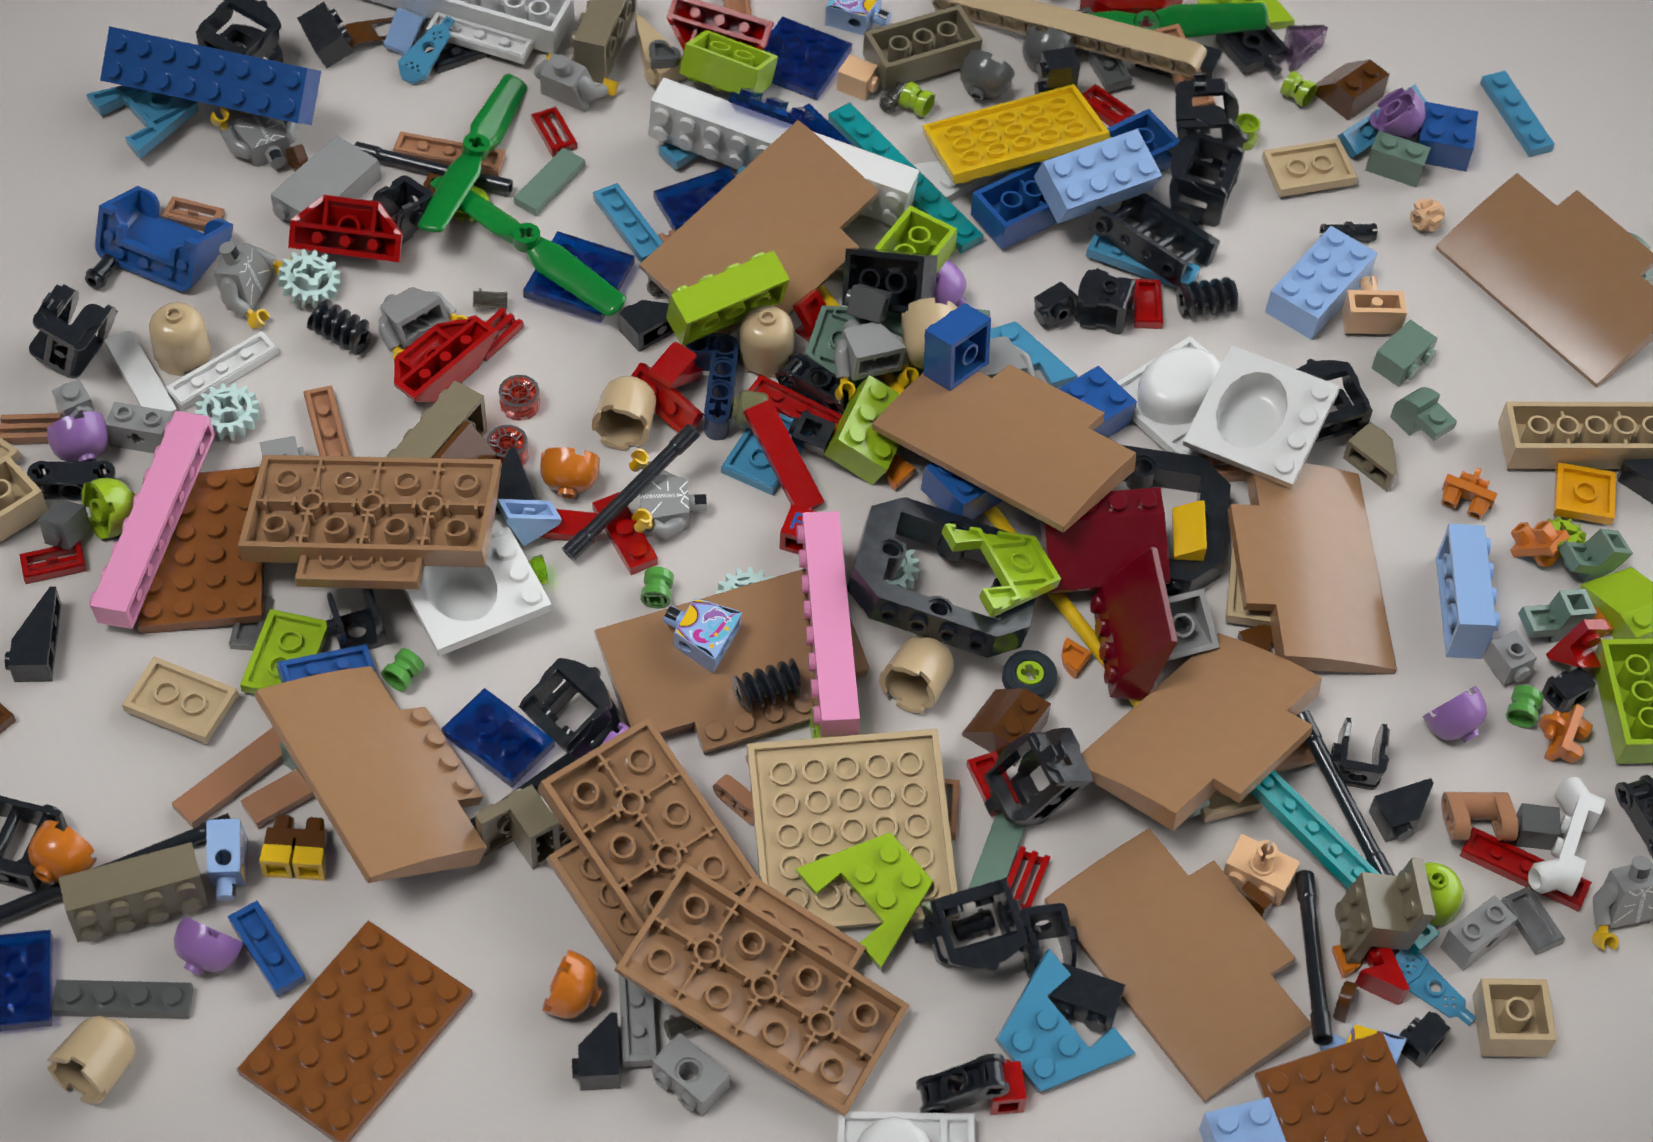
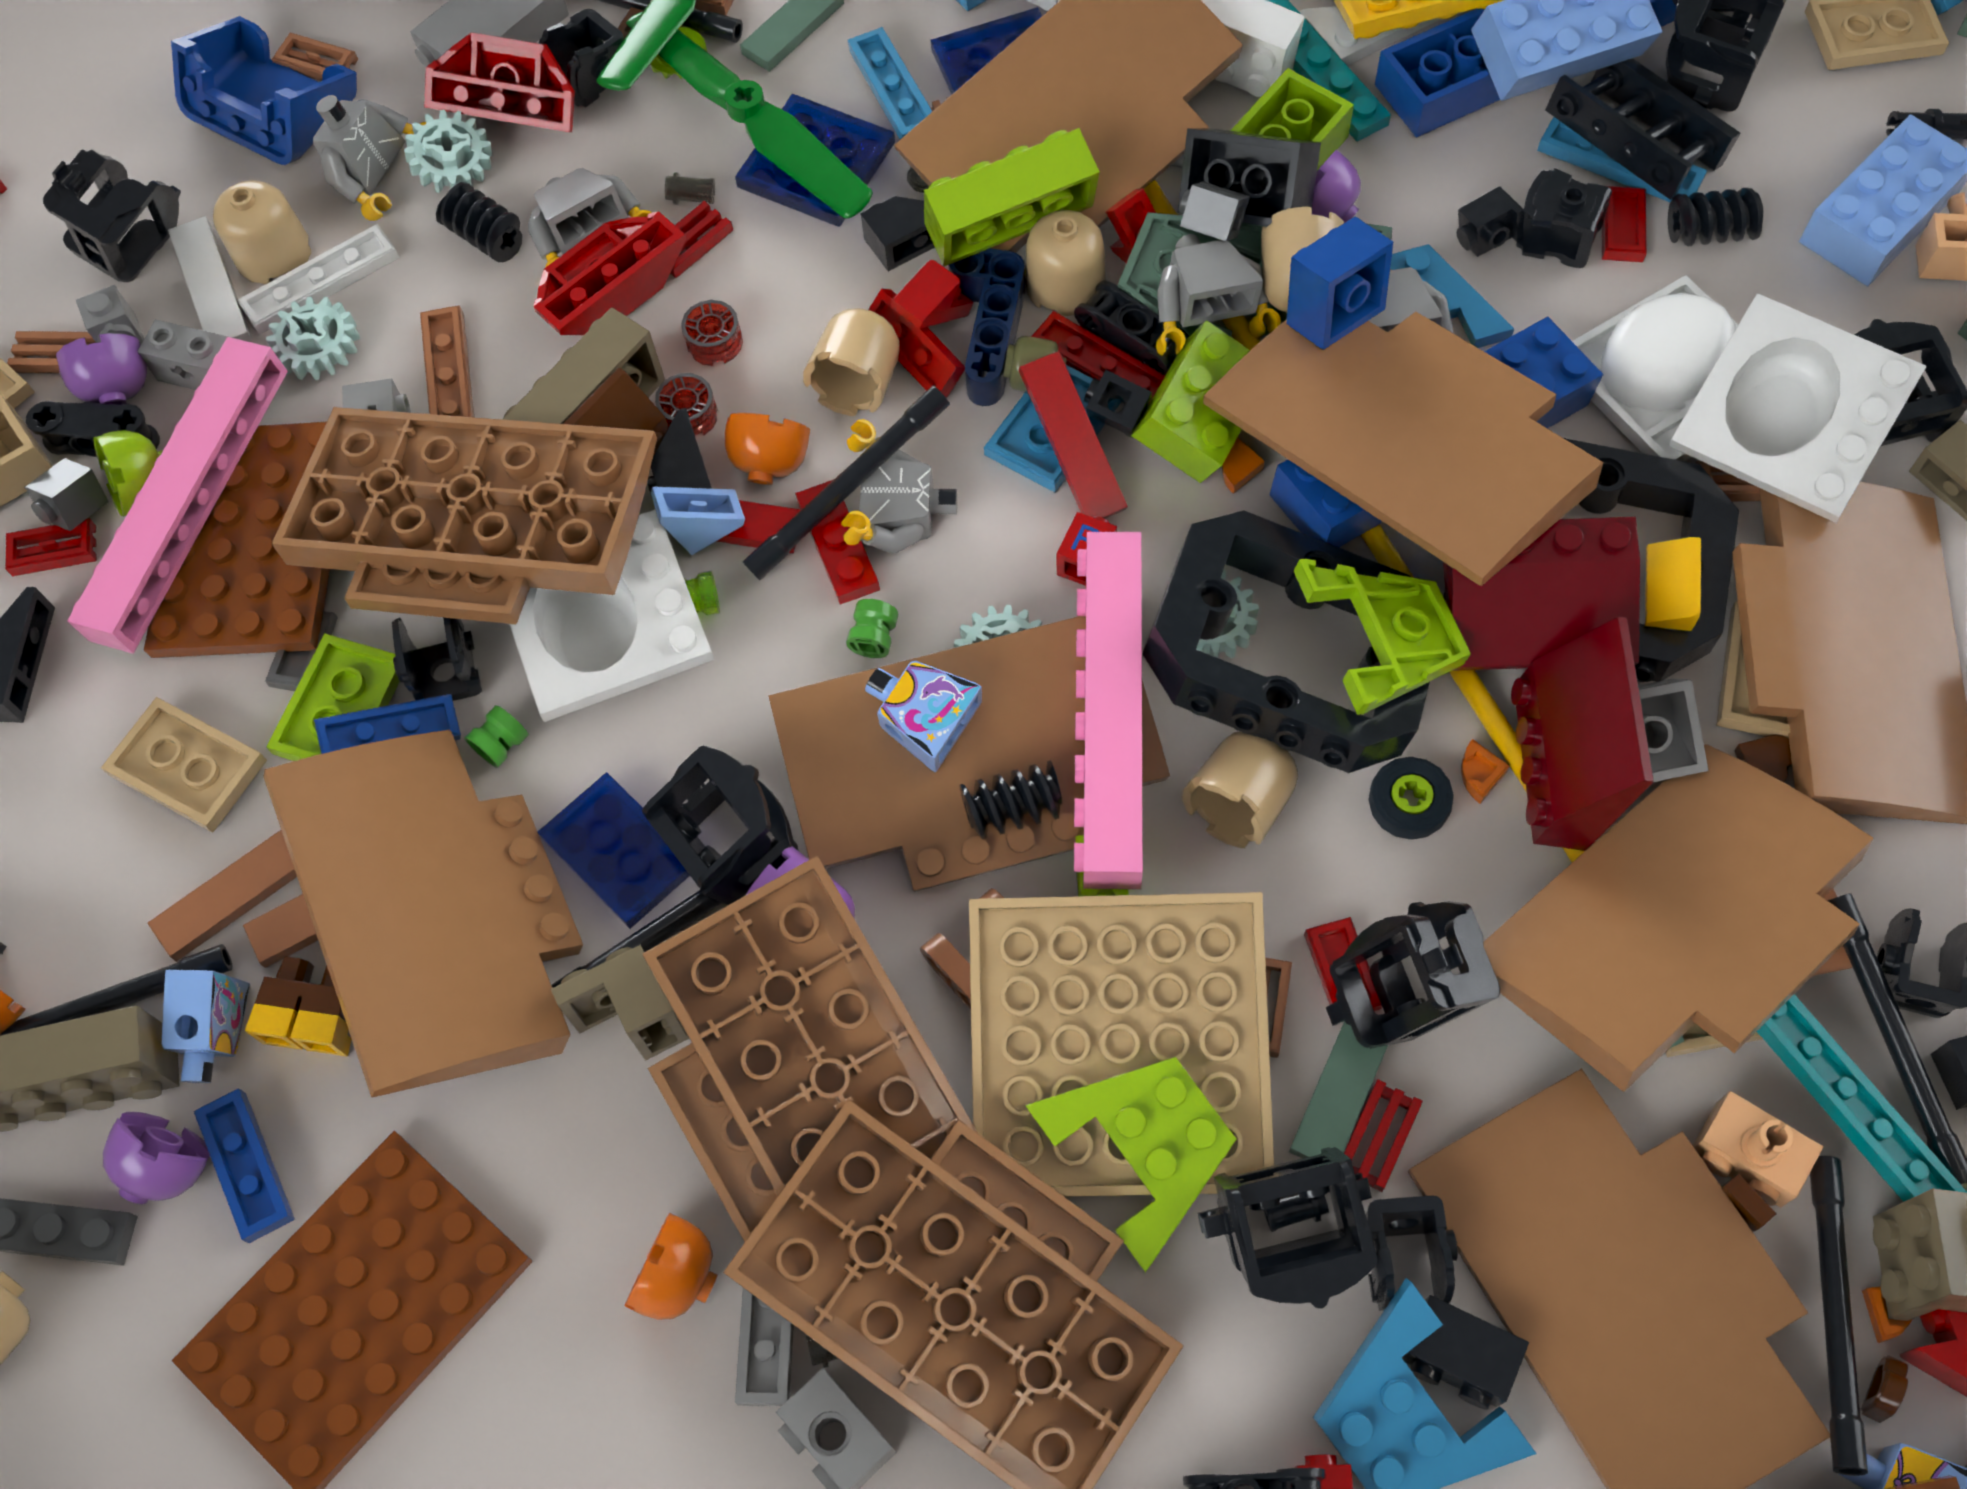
camera: 15 degrees right, 10 degrees up
(97, 276) = (180, 134): black pin -> none
(599, 1057) = (702, 1388): black slope -> none
(1007, 717) = (1372, 871): reddish brown slope -> none

